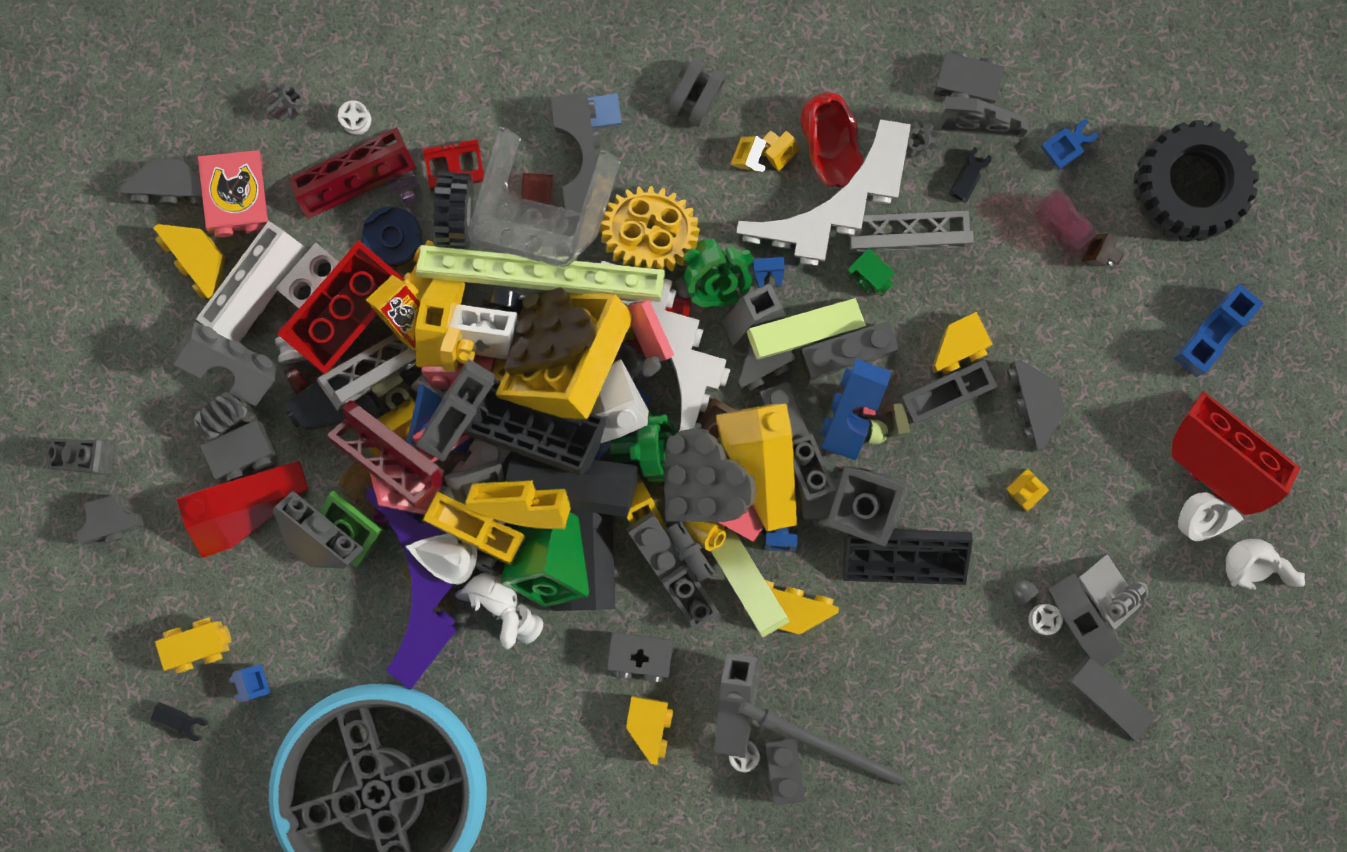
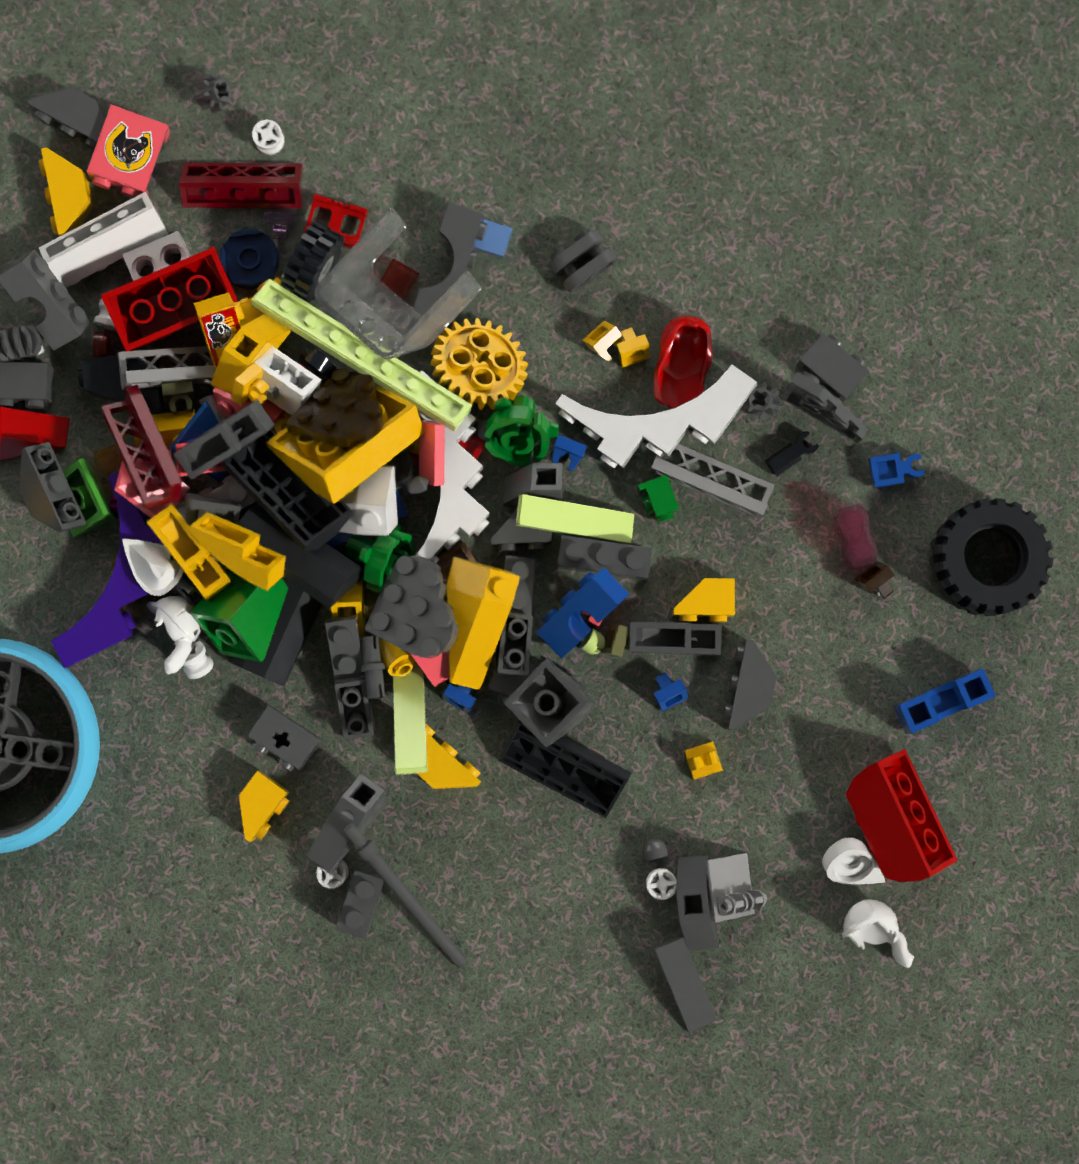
camera: 20 degrees right, 0 degrees up
(967, 443) = (669, 692): none -> blue tile

